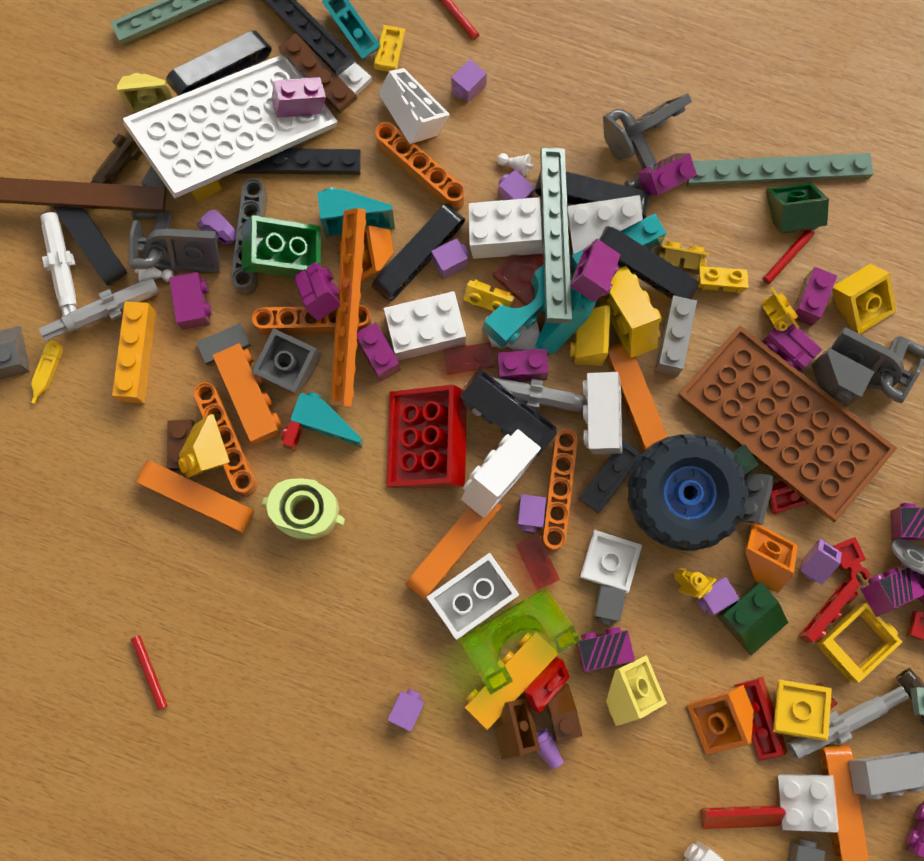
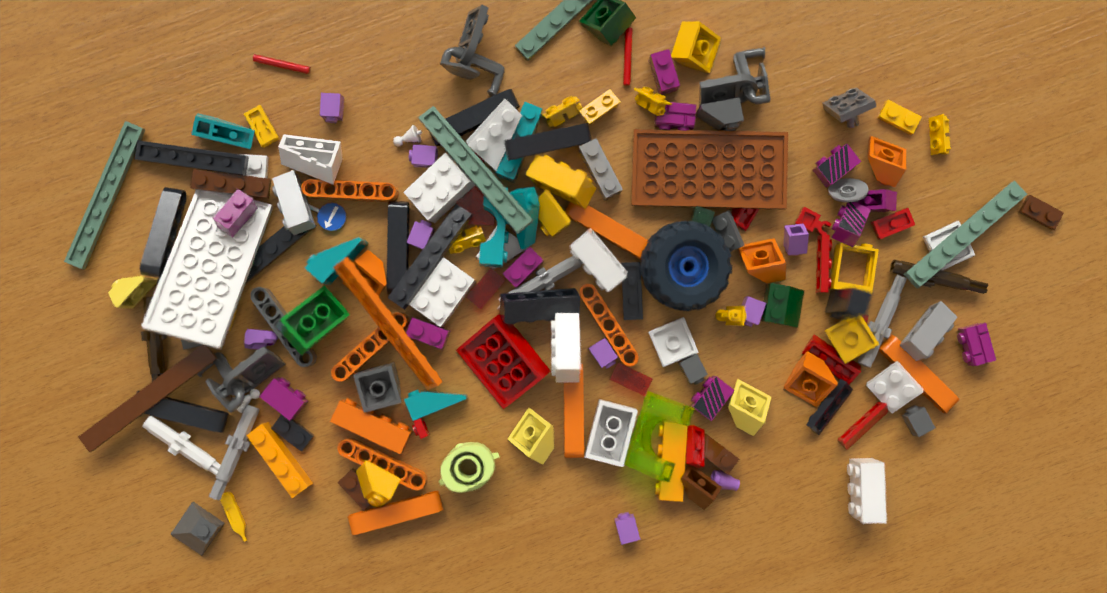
camera: 45 degrees left, 10 degrees up
(169, 340) = (292, 432): none -> black plate
(222, 341) = (327, 406): dark grey tile -> none
(317, 290) = (359, 329): magenta brick -> none
(357, 133) = (293, 203): none -> brick
(380, 175) = (330, 216): none -> blue piece
(393, 537) = (533, 436): none -> light yellow slope
(442, 281) = (430, 256): none -> black plate
(595, 270) = (521, 176): magenta brick -> none
(667, 173) = (510, 66): magenta brick -> none
(721, 765) = (829, 407): none -> black plate
(829, 665) = (848, 303): none -> black brick

